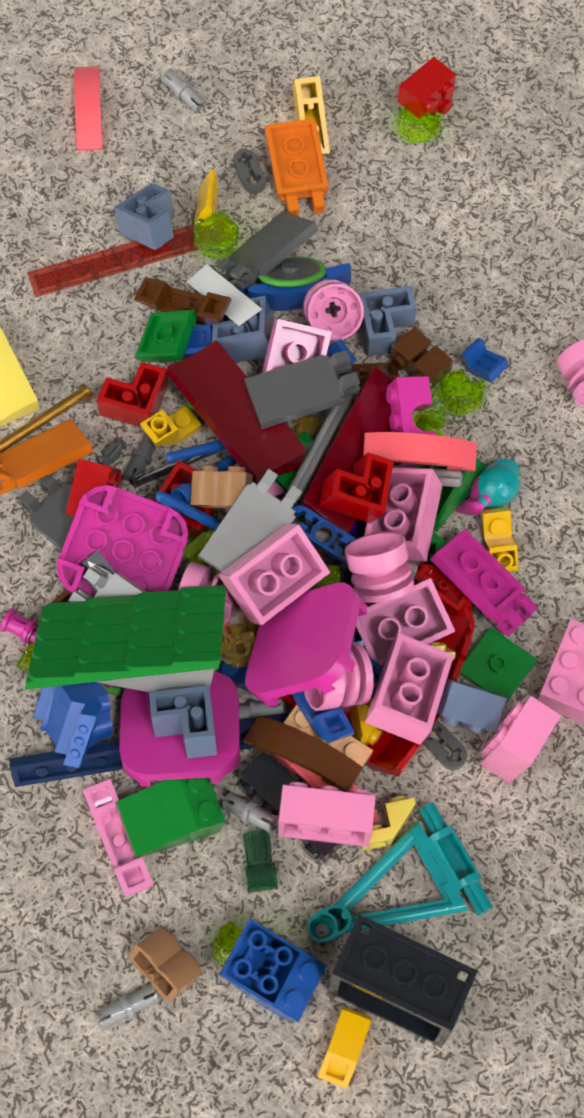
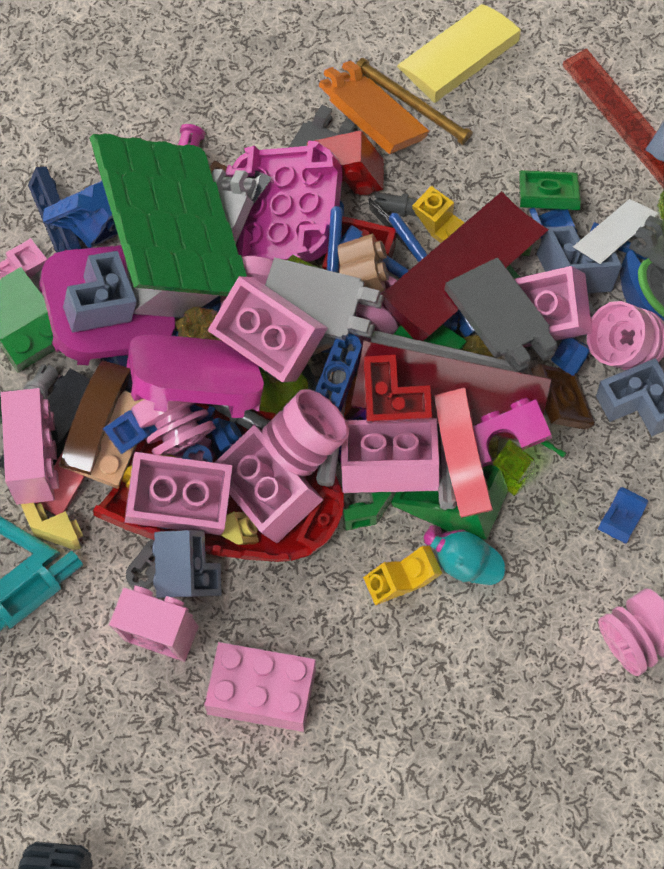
camera: 80 degrees right, 0 degrees up
(112, 452) = (401, 177): dark grey piece -> none
(134, 401) = (465, 183): red brick -> none
(162, 297) = (595, 193): reddish brown slope -> none
(412, 356) = (603, 448): reddish brown piece -> none
(460, 393) = (572, 497): clear neon green hair -> none
(485, 582) = (342, 561): dark pink tile -> none
(497, 665) = (253, 602): green plate -> none

